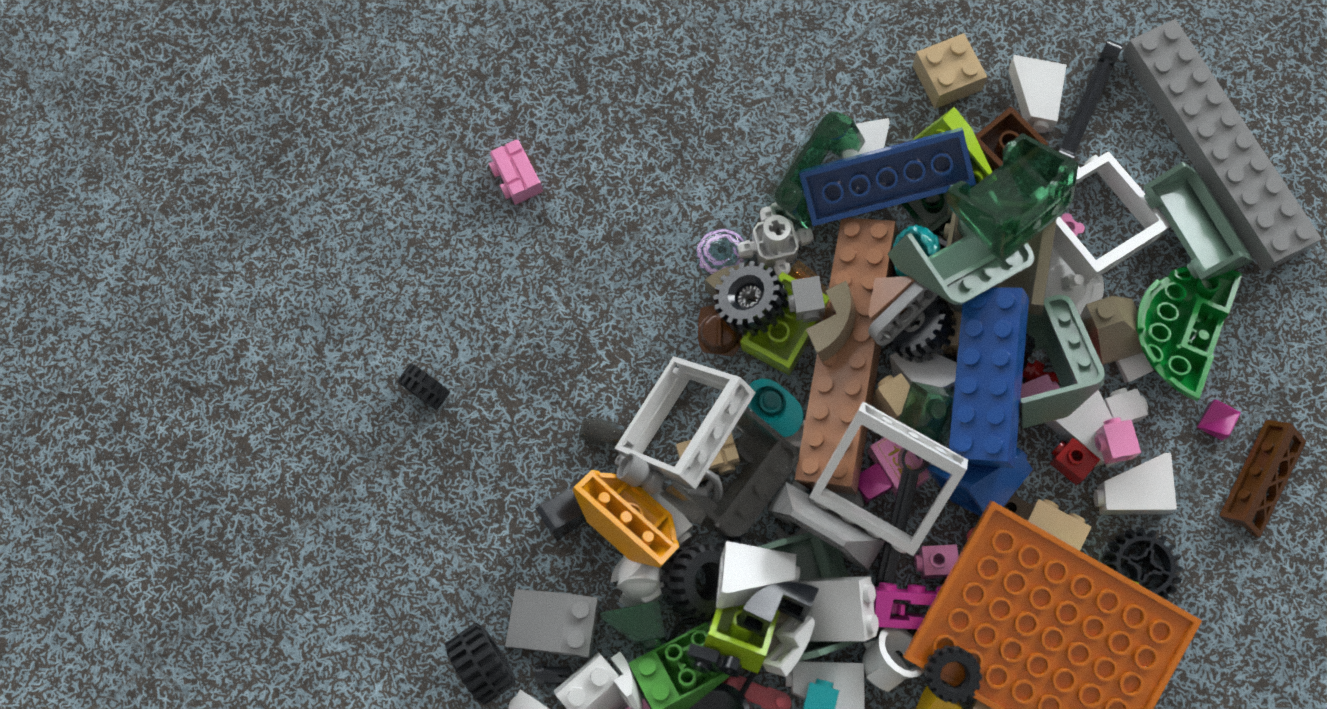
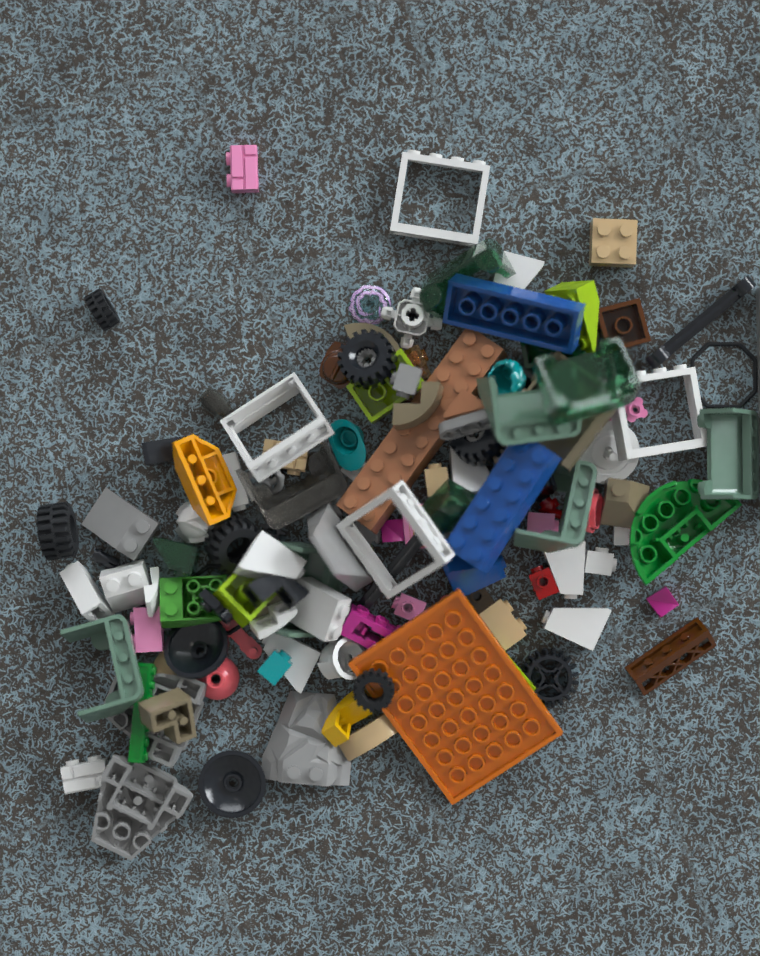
camera: 20 degrees right, 15 degrees up
(636, 472) = (224, 449): light grey piece -> none
(753, 146) = (431, 233): none -> white window
(1038, 90) = (672, 291): white slope -> none
(1117, 441) = (575, 585): bright pink brick -> none
(1143, 116) = (755, 368): none -> black piece

